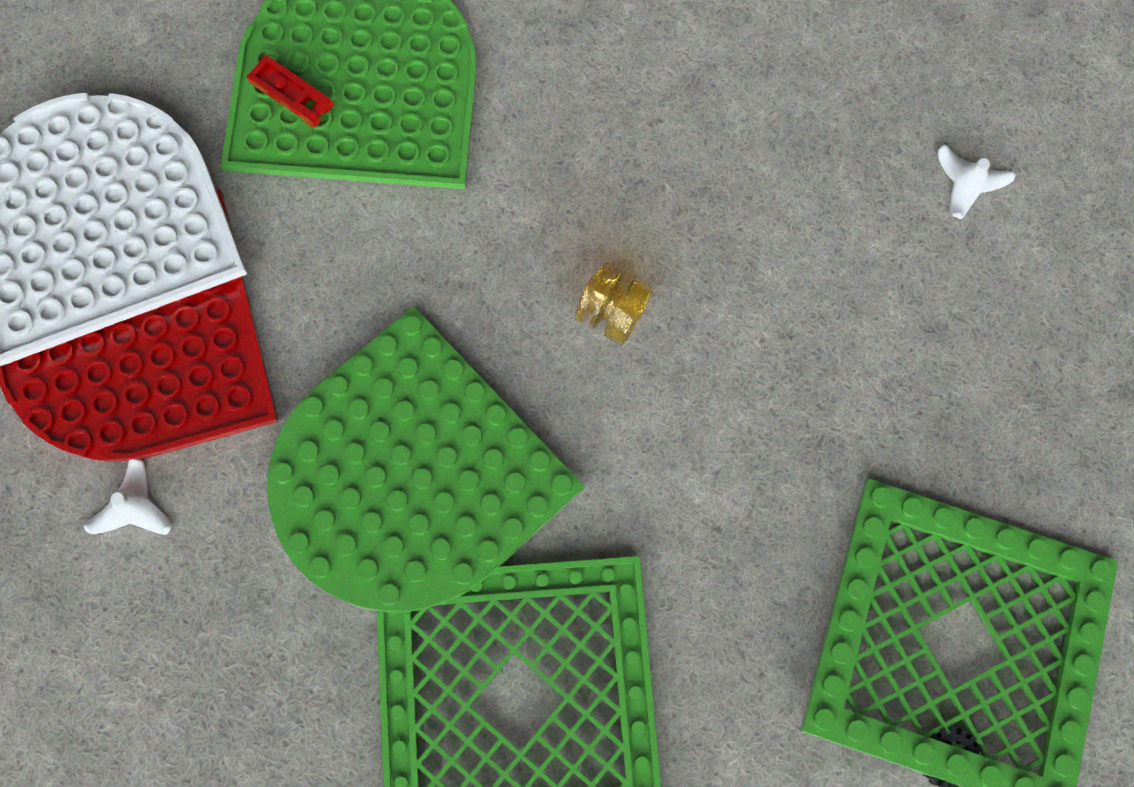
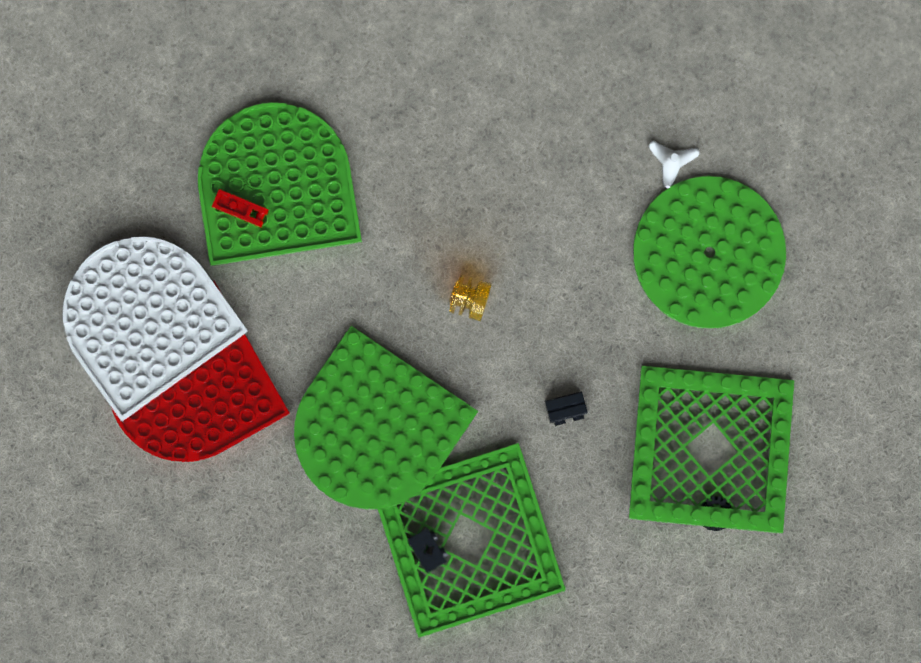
camera: 15 degrees left, 10 degrees up
(131, 506) = (220, 483): white piece -> none
(426, 690) = (428, 561): none -> black brick
(730, 517) = (565, 408): none -> black brick
(997, 387) = (701, 288): none -> bright green plate

